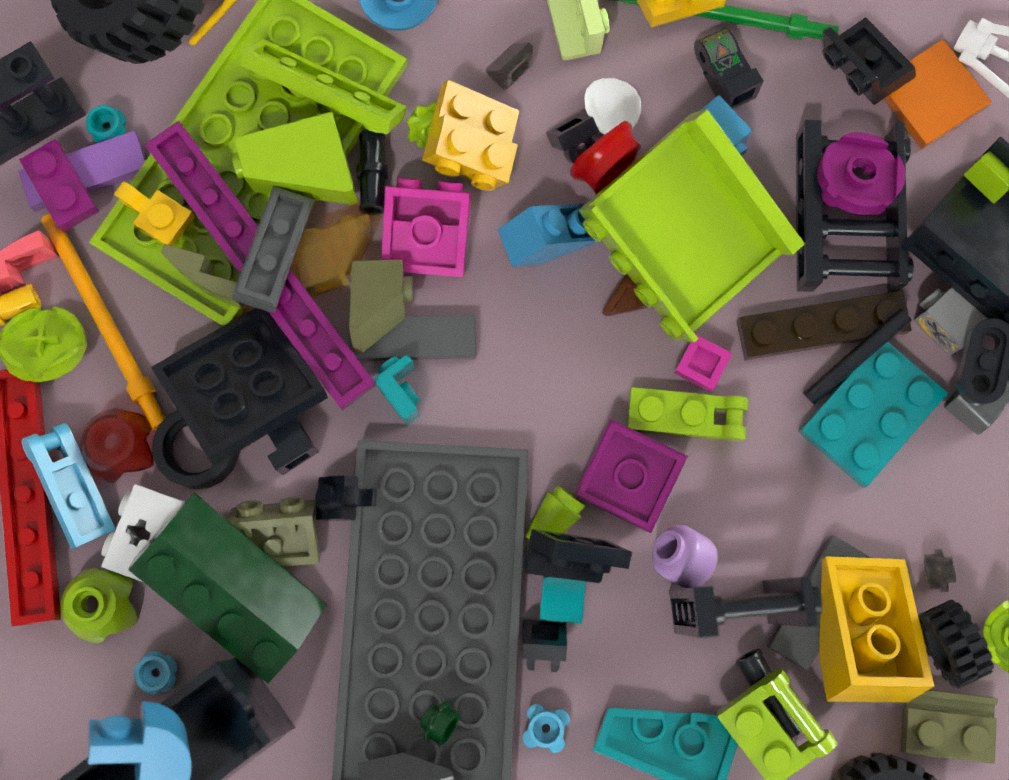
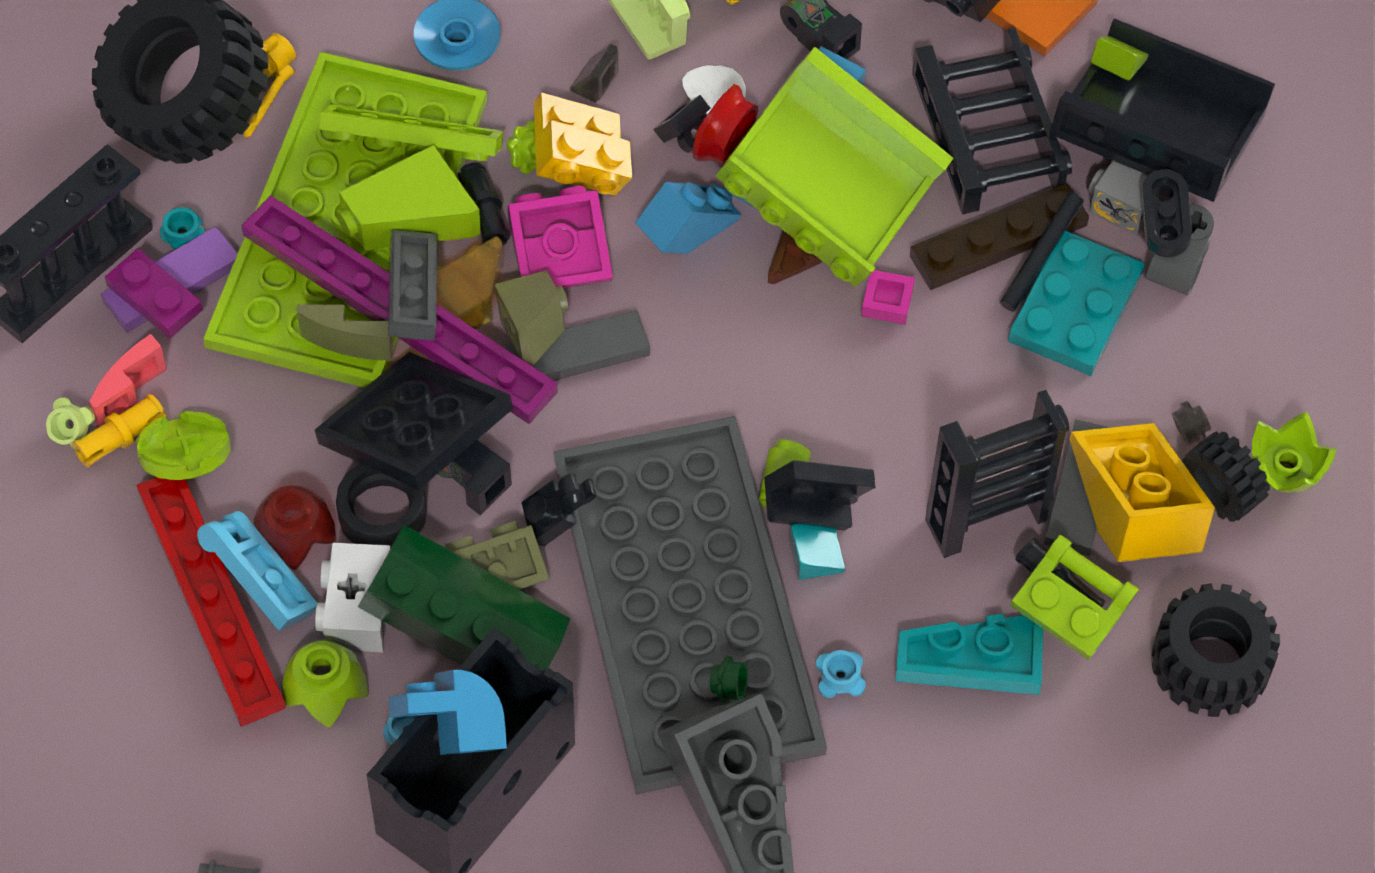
camera: 20 degrees left, 20 degrees down
(139, 387) = (298, 465): light orange bar -> none
(158, 216) = (272, 294): yellow plate -> none
(402, 396) = (580, 400): teal bracket -> none
(544, 642) = (811, 590): black tile -> none
(630, 476) = (849, 416): magenta plate -> none
(684, 556) = (915, 467): lavender head -> none
(686, 414) = (887, 350): lime plate -> none
(849, 192) = (971, 96): magenta plate -> none
(950, 726) = (1255, 560): olive plate -> none

